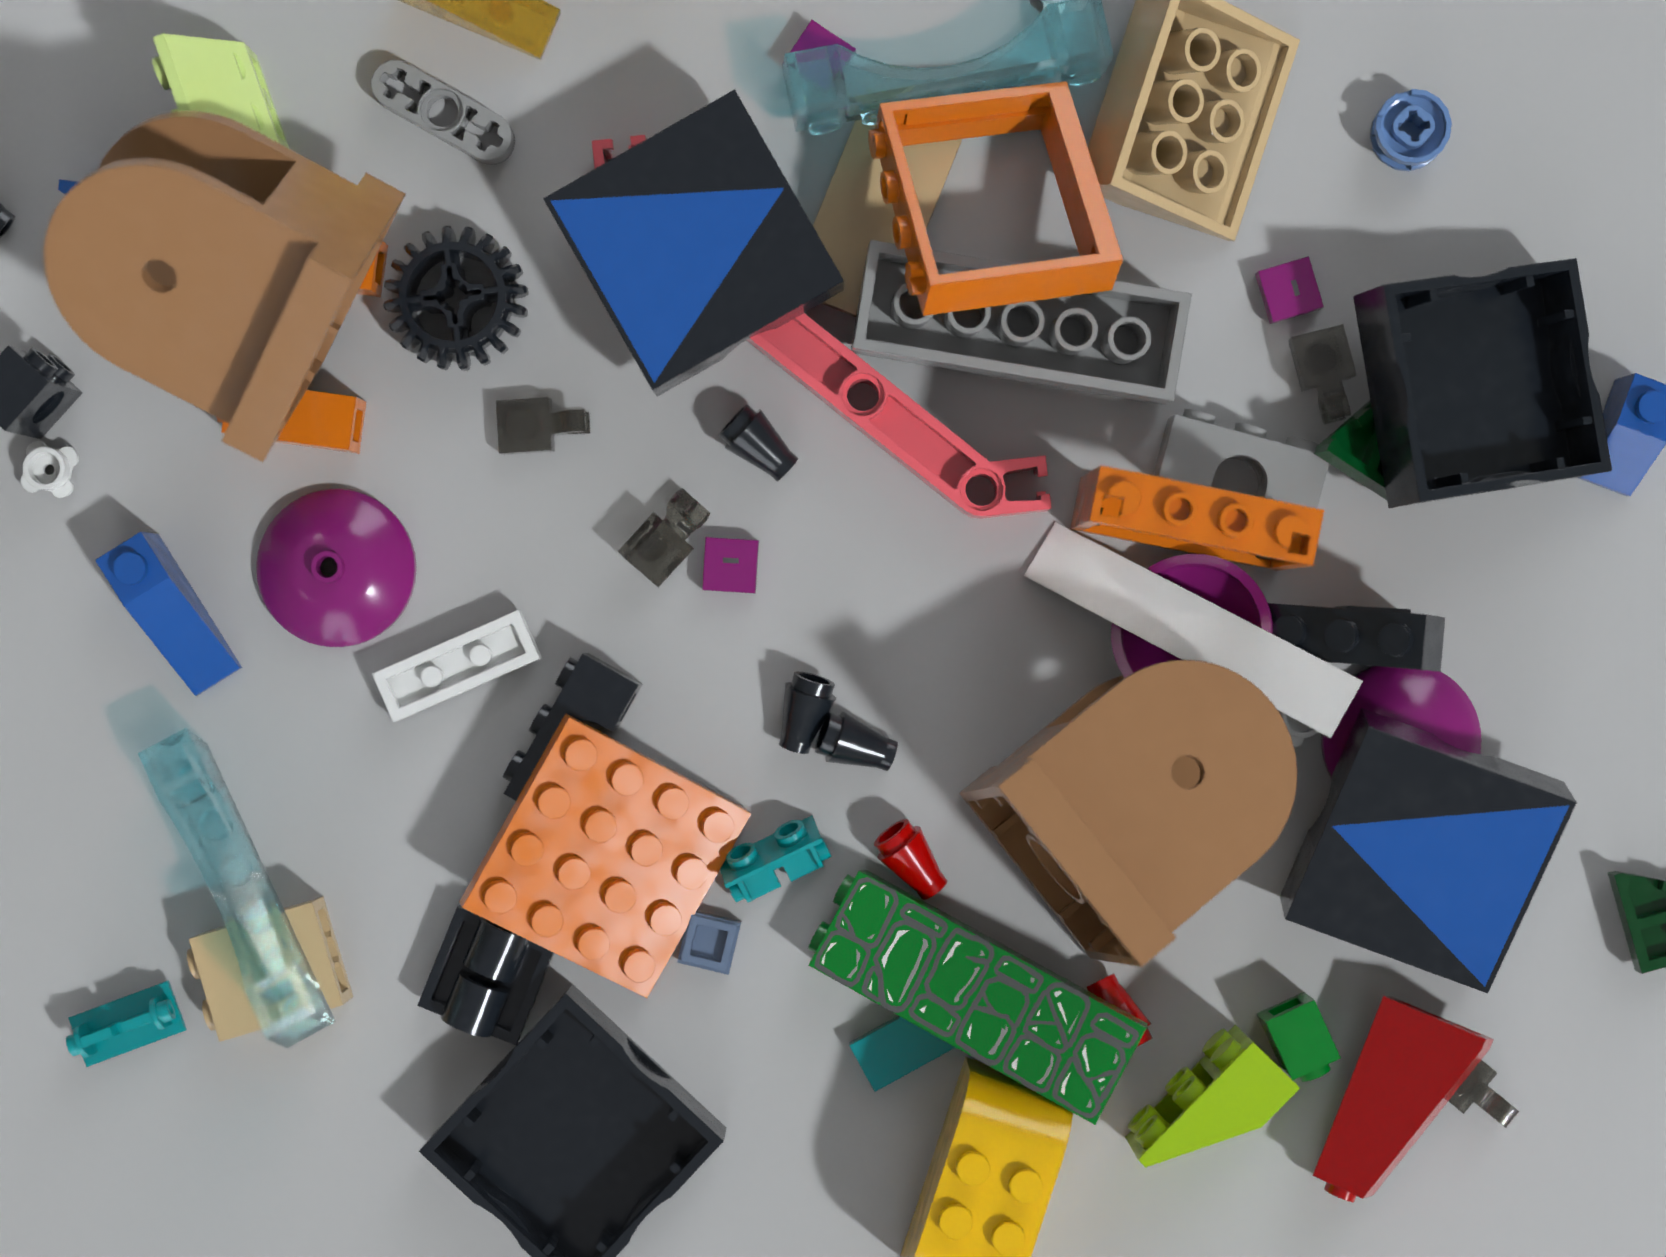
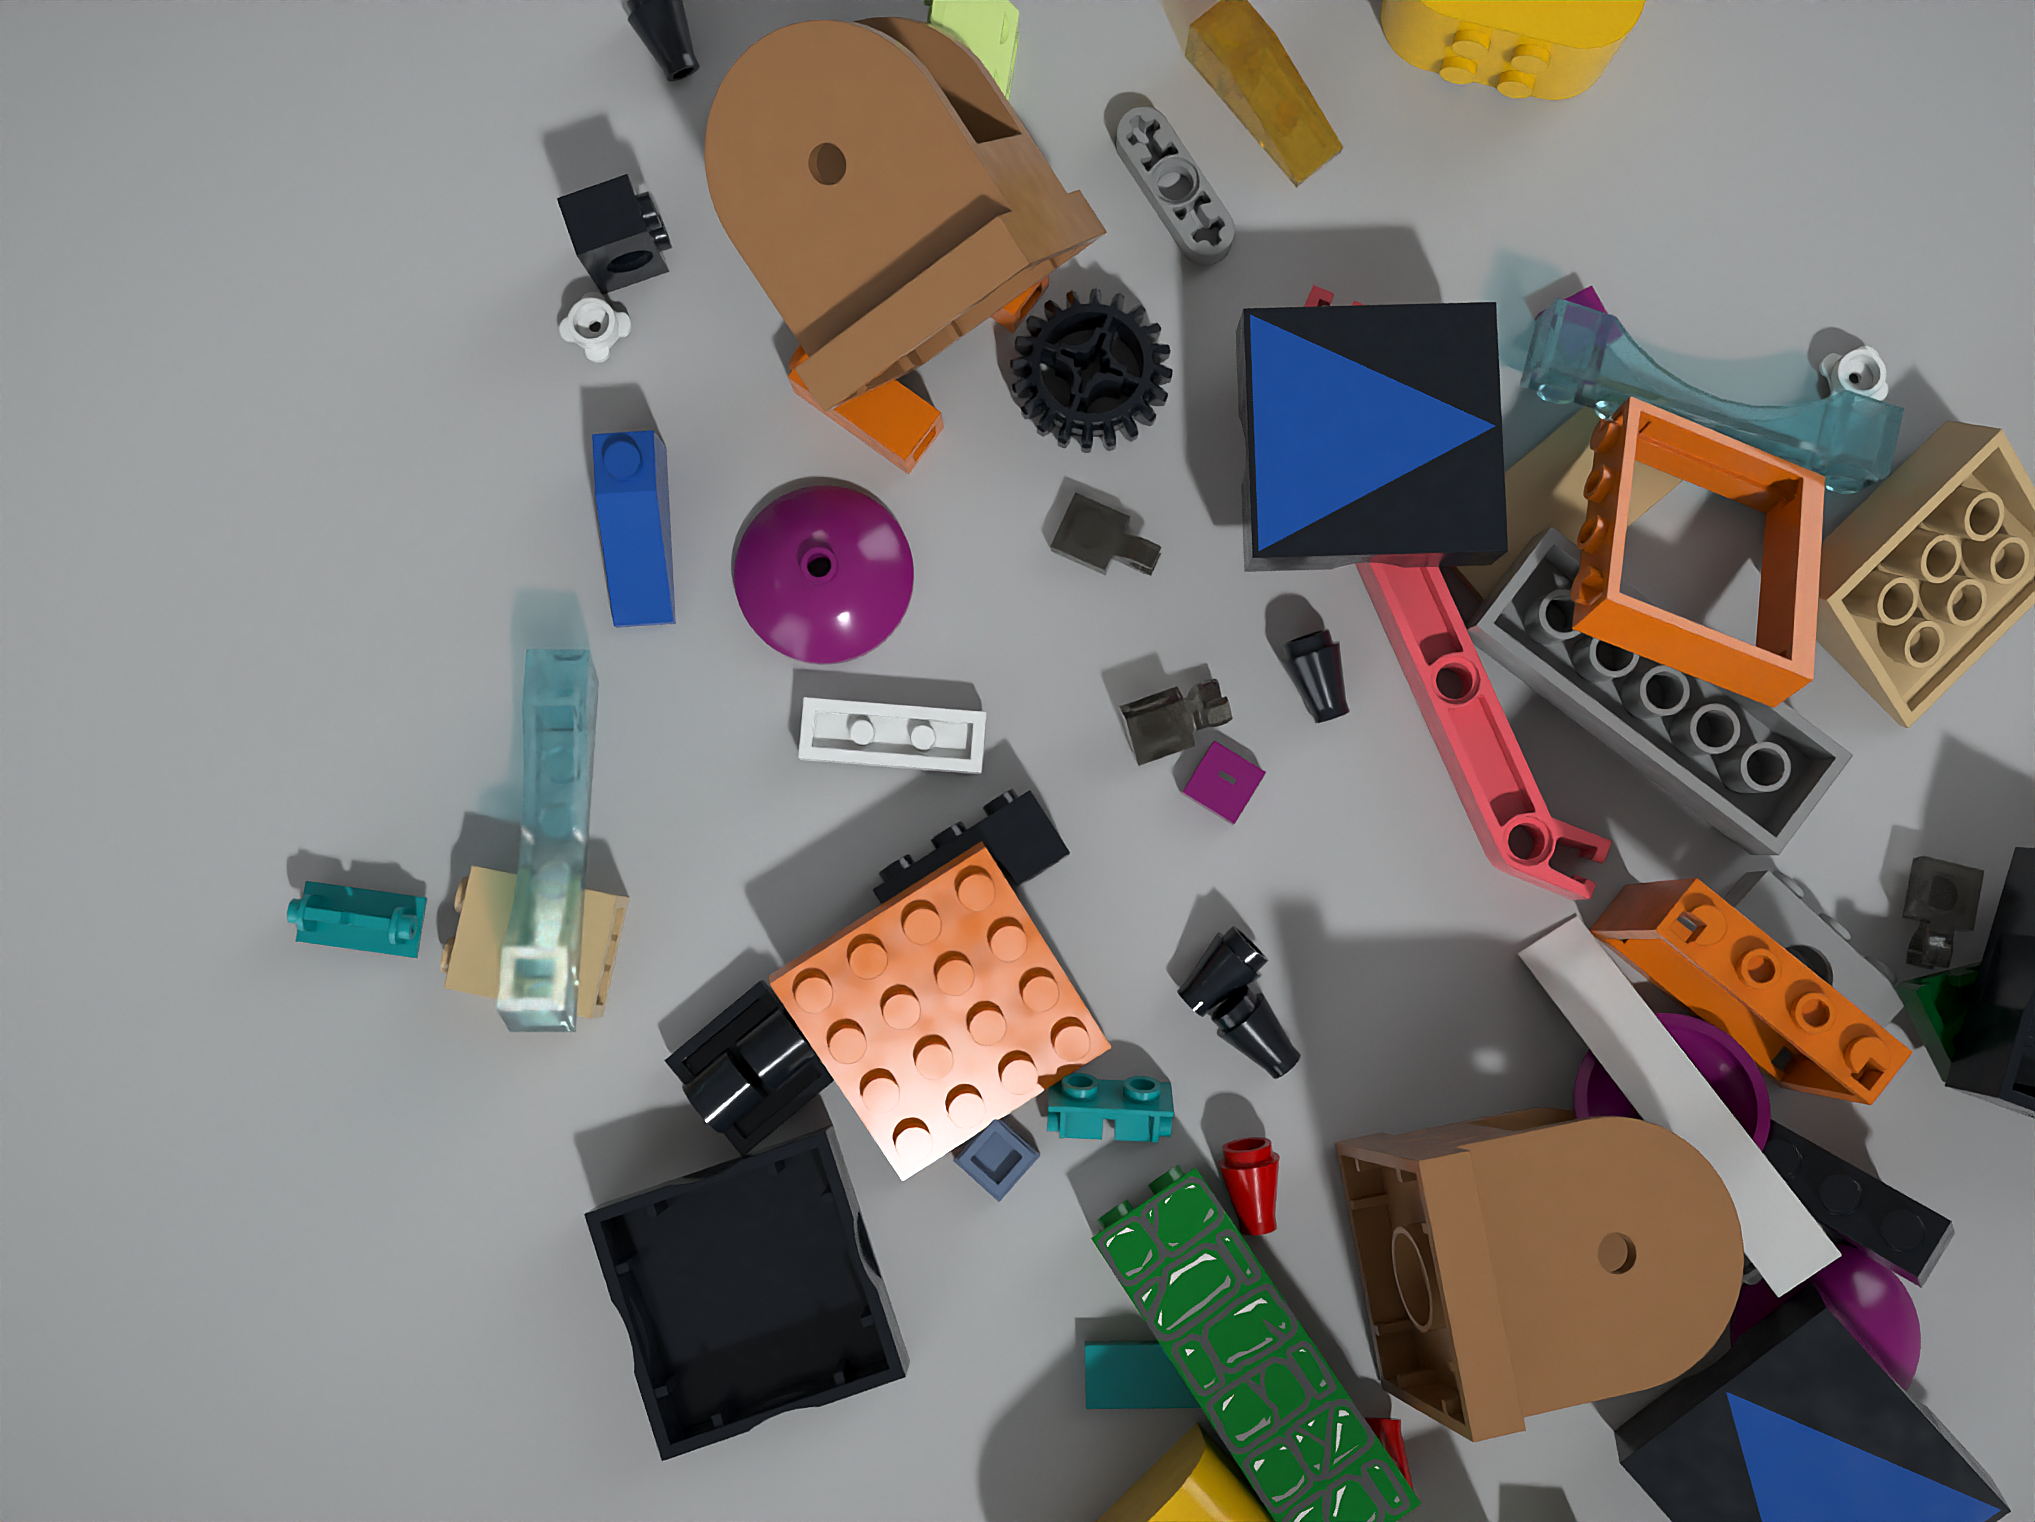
camera: 35 degrees right, 5 degrees down
(1289, 290) = (1940, 807): magenta tile -> none

